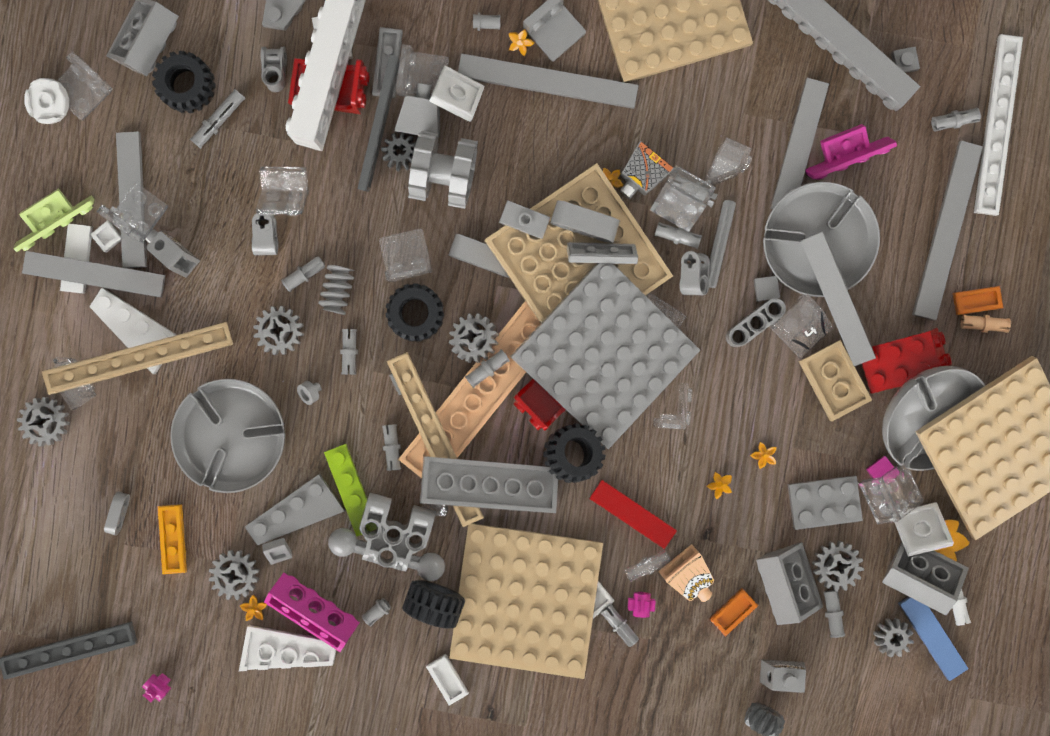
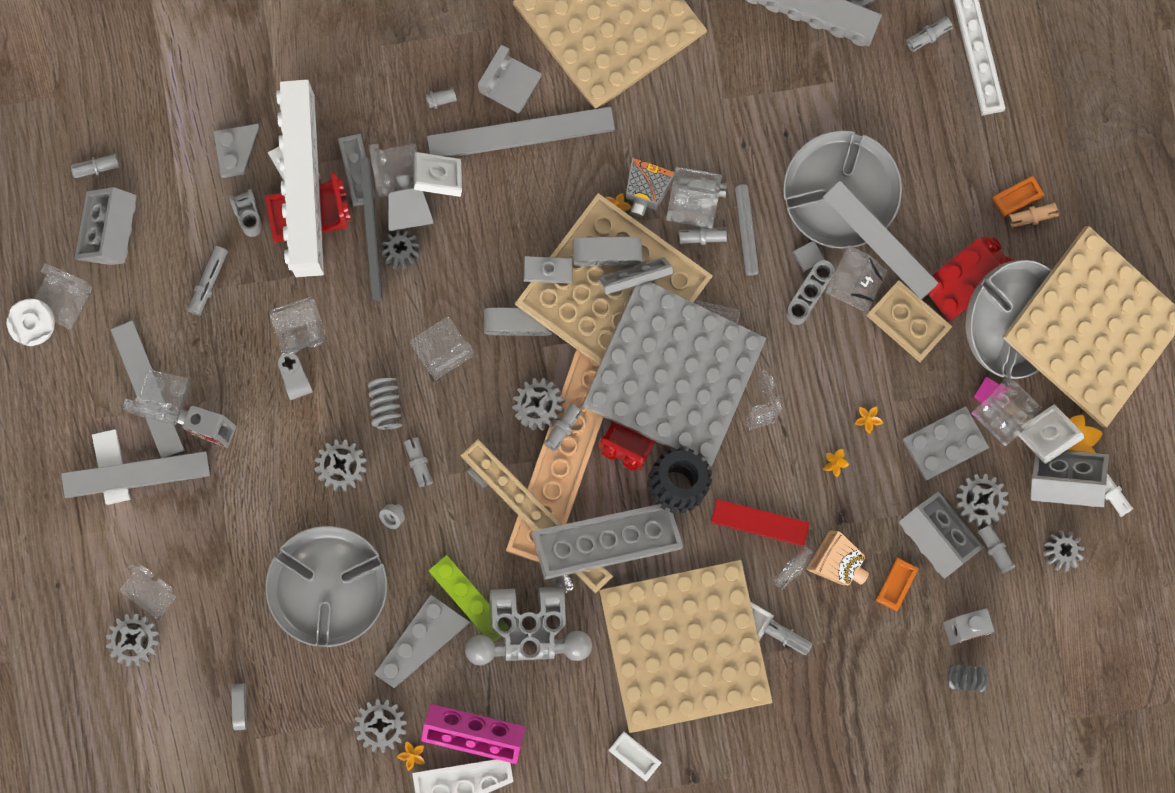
camera: 25 degrees left, 10 degrees down
(49, 214) = (70, 432): yellowish green bracket -> none
(106, 236) = (134, 434): white tile -> none
(127, 322) = (201, 518): white wing -> none
(136, 358) = (210, 538): tan tile -> none
(170, 69) = (163, 237): black tyre -> none
(172, 539) = (303, 714): light orange tile -> none
(277, 551) = (416, 686): light grey plate -> none
(303, 273) = (345, 401): light grey axle -> none
(376, 612) = (538, 712): light grey pin -> none
(391, 447) = (494, 541): light grey pin -> none
(396, 305) = (465, 380): black tyre -> none
(433, 604) = (594, 678): black tyre -> none
(442, 169) = (450, 249): light grey piece -> none
(520, 41) = (480, 105): light orange plant -> none
(641, 604) = (802, 607): dark pink gear -> none
(694, 275) = (733, 267): light grey piece -> none
(728, 162) = (726, 146): clear slope -> none
(801, 138) = (787, 101): light grey tile -> none
(846, 149) = (835, 96): dark pink bracket -> none
(934, 637) = (1103, 537): medium blue tile -> none
(947, 230) = (962, 141): light grey tile -> none

